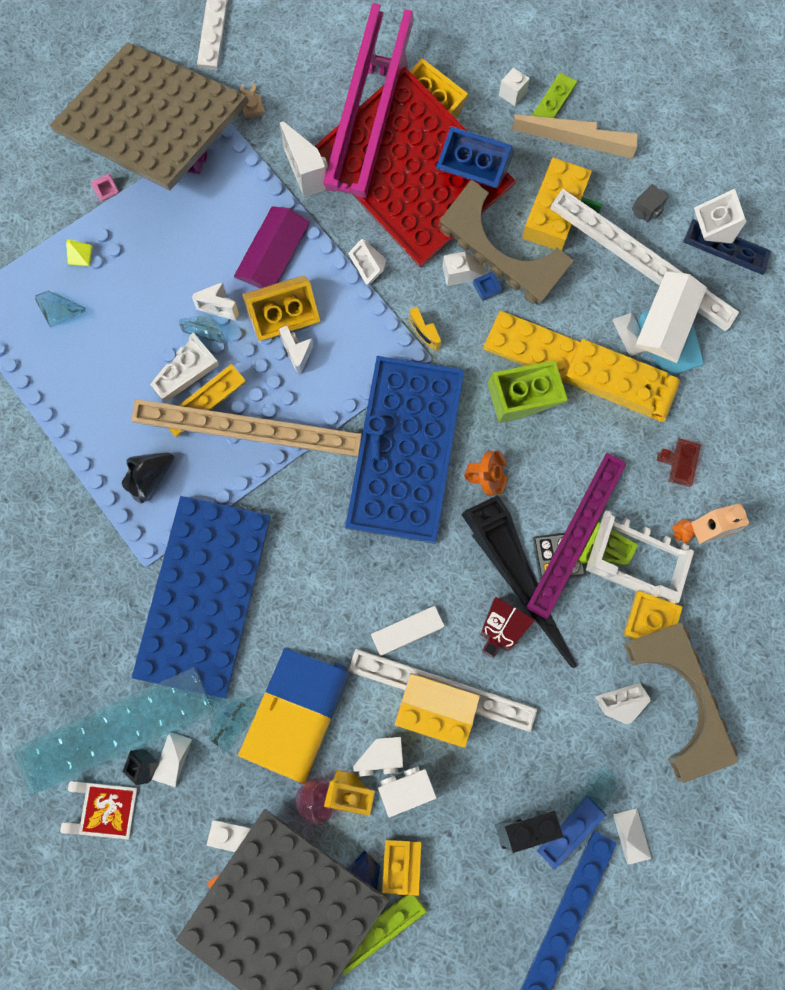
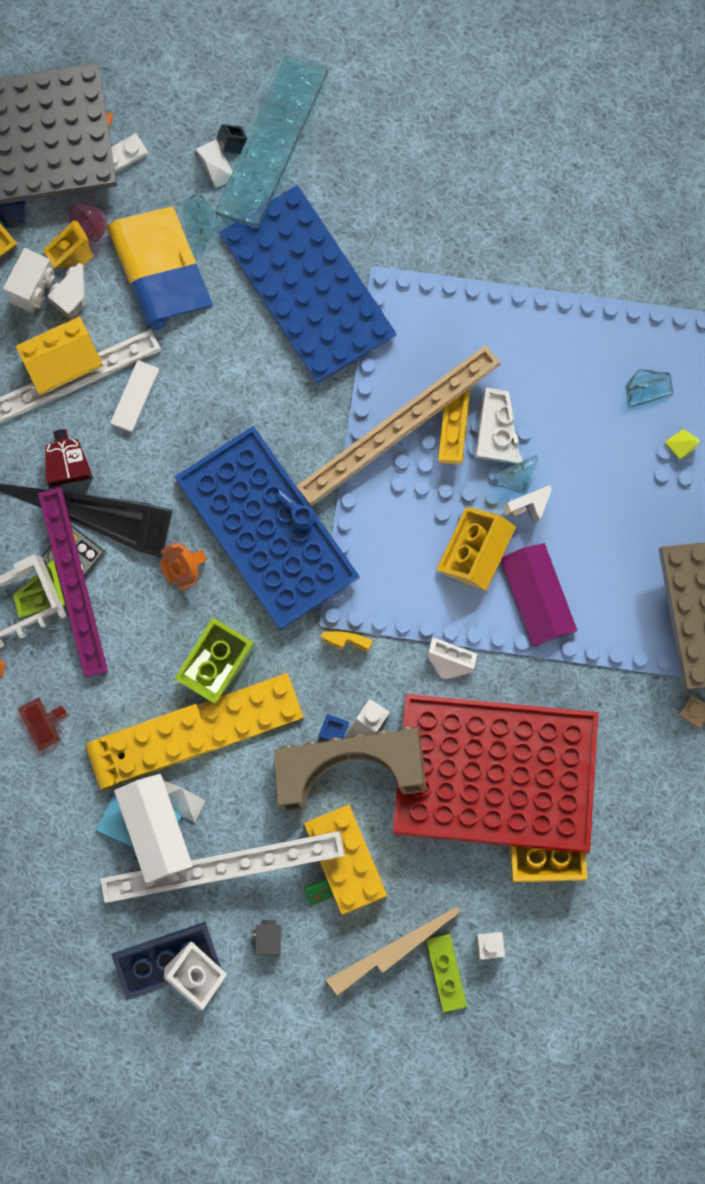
camera: 135 degrees right, 5 degrees up
(105, 810) = (226, 92): flag -> none
(145, 474) = (438, 326): black hat -> none
(297, 351) = (424, 520): white slope -> none
(304, 160) = (588, 689): white slope -> none
(366, 64) = (605, 859): dark pink piece -> none
(475, 157) = (439, 808): blue slope -> none

